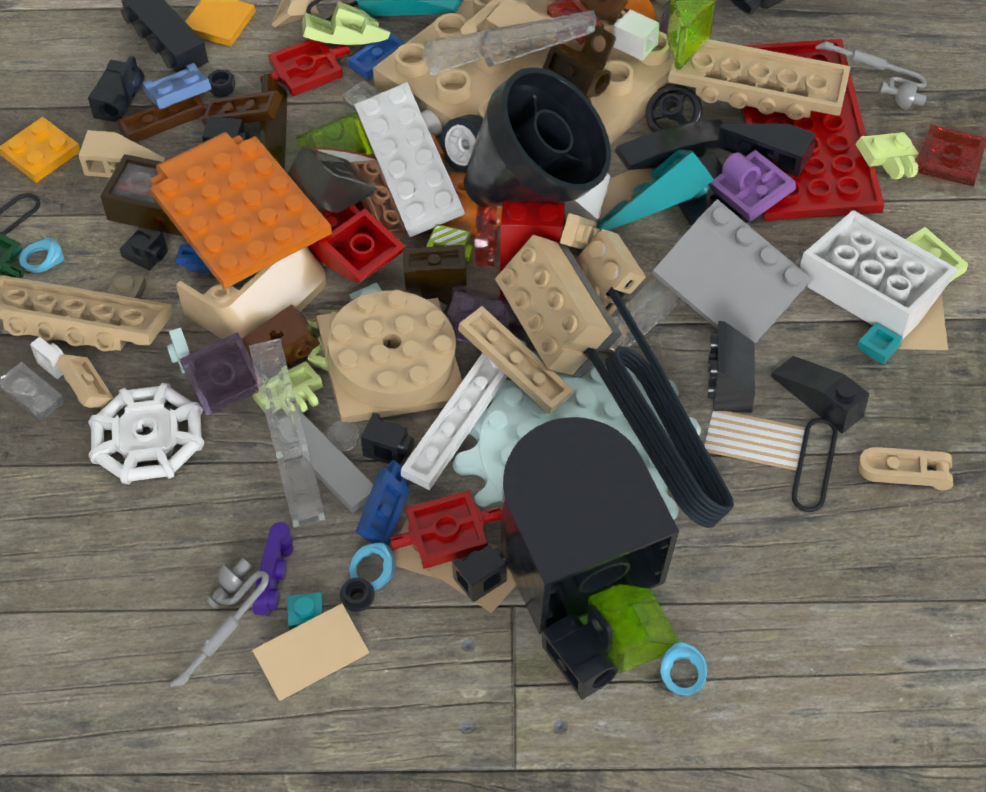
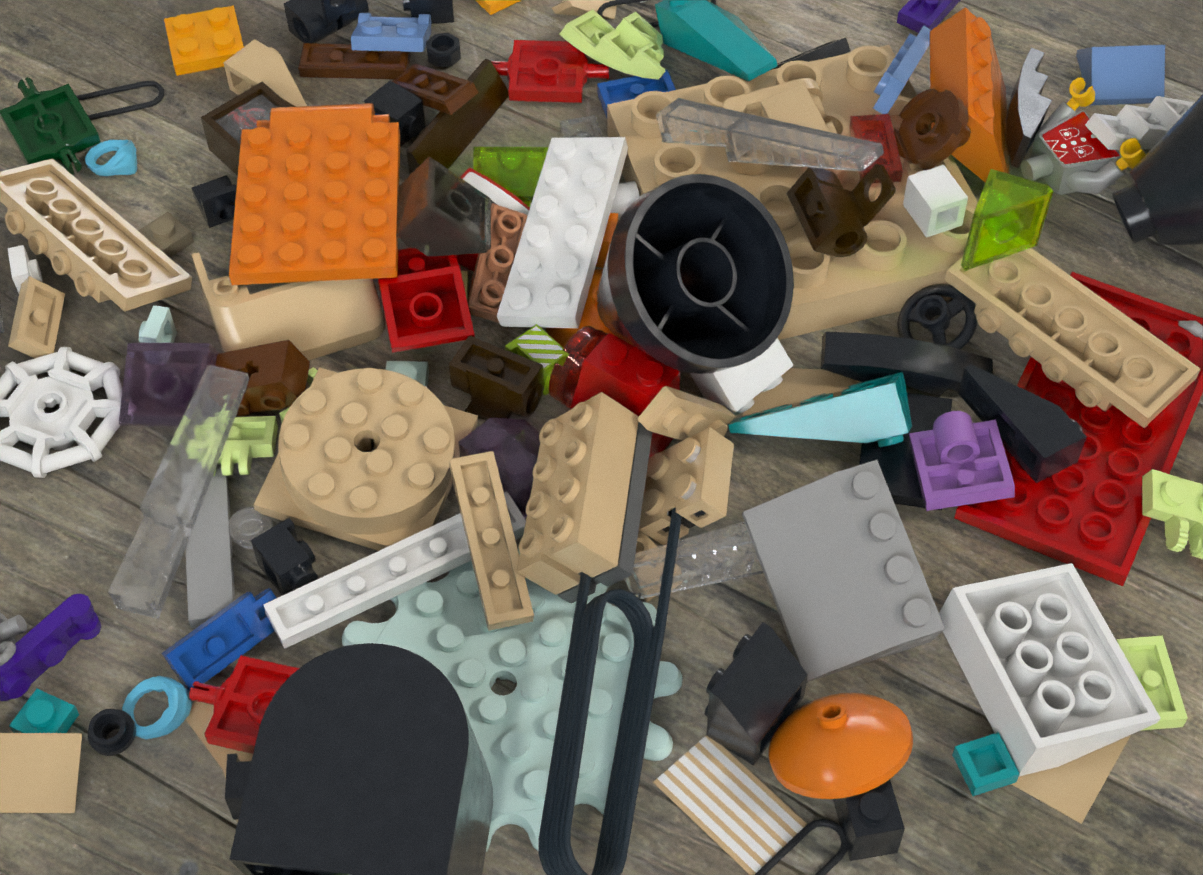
camera: 30 degrees right, 0 degrees up
(799, 372) = (840, 746): none -> orange dish

